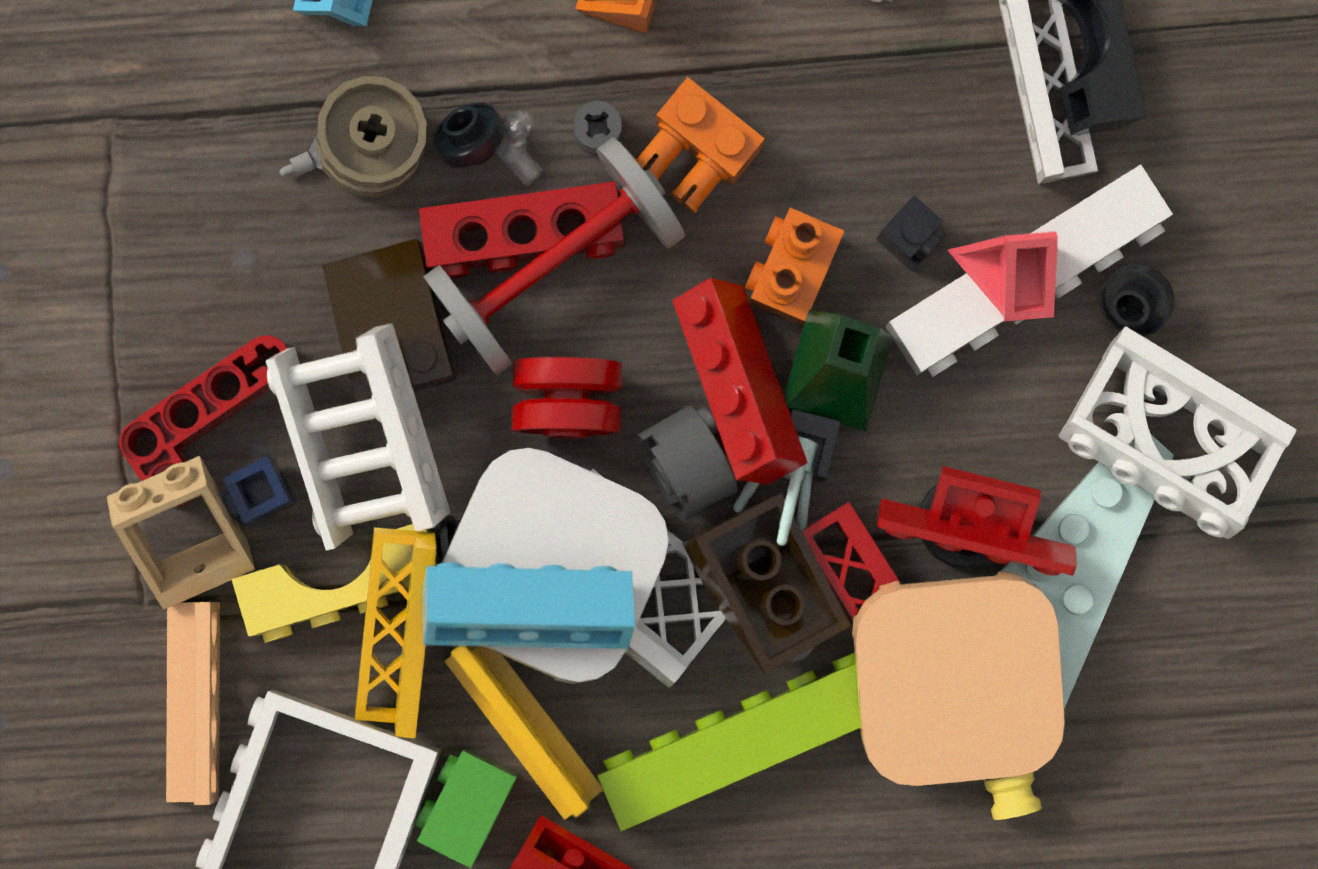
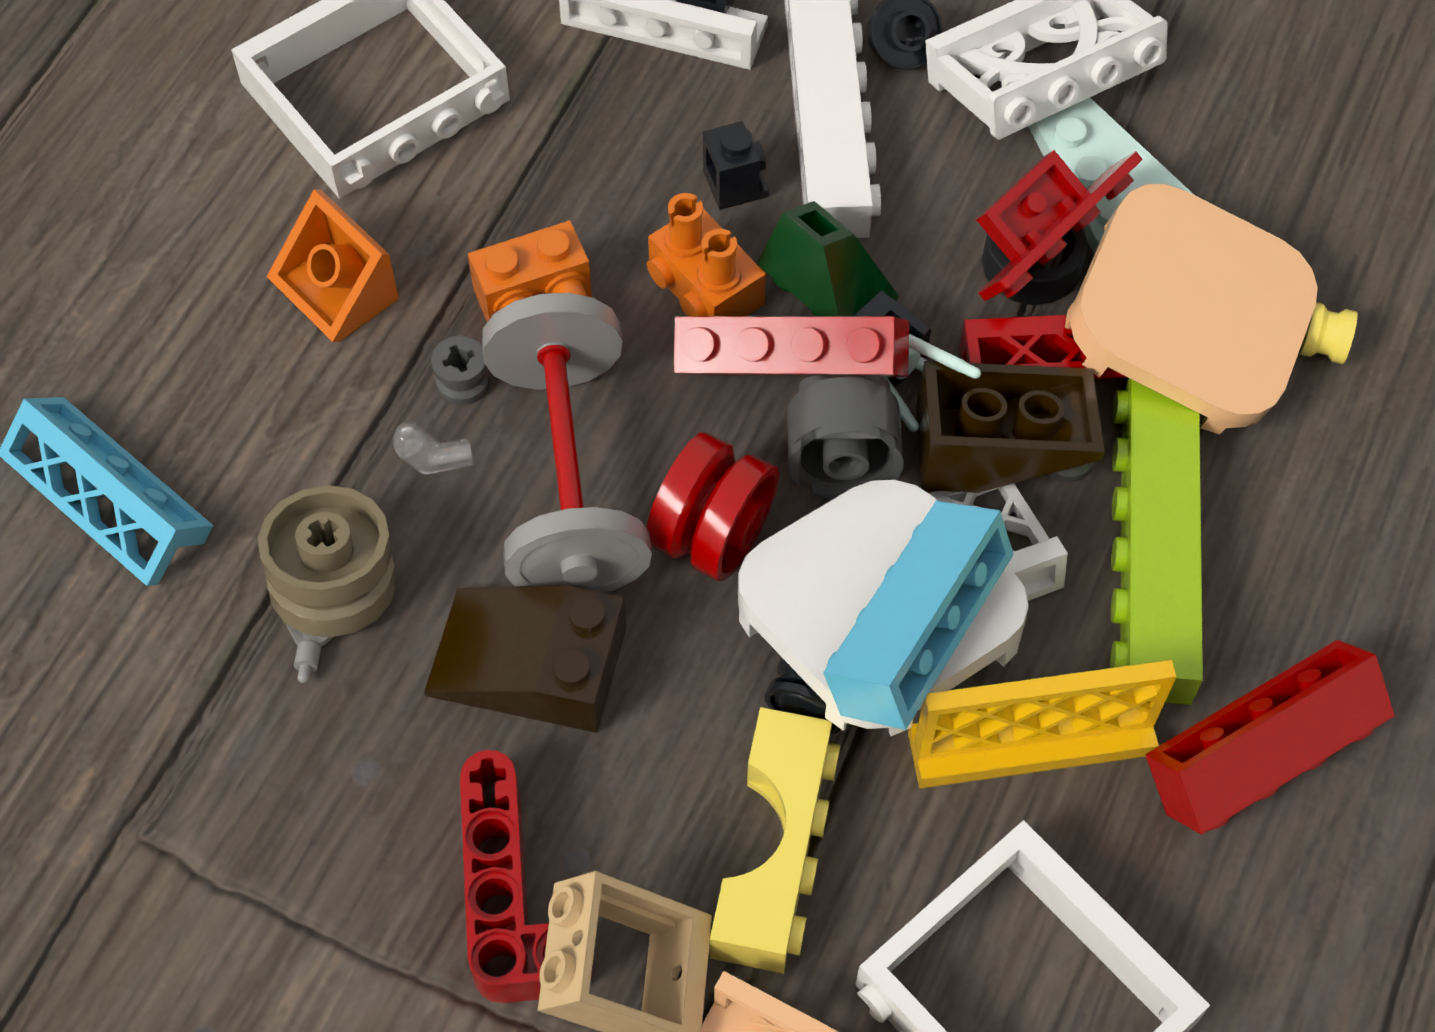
camera: 60 degrees left, 25 degrees down
(257, 491) = (629, 851): dark blue brick -> none
(391, 404) = (619, 658): white fence -> none
(413, 650) = (882, 775): yellow fence -> none
(446, 224) = (463, 547): red brick -> none
(466, 807) = (1098, 831): bright green brick -> none
(469, 135) = (391, 475): black plate -> none
(1014, 273) = (825, 81): coral slope -> none

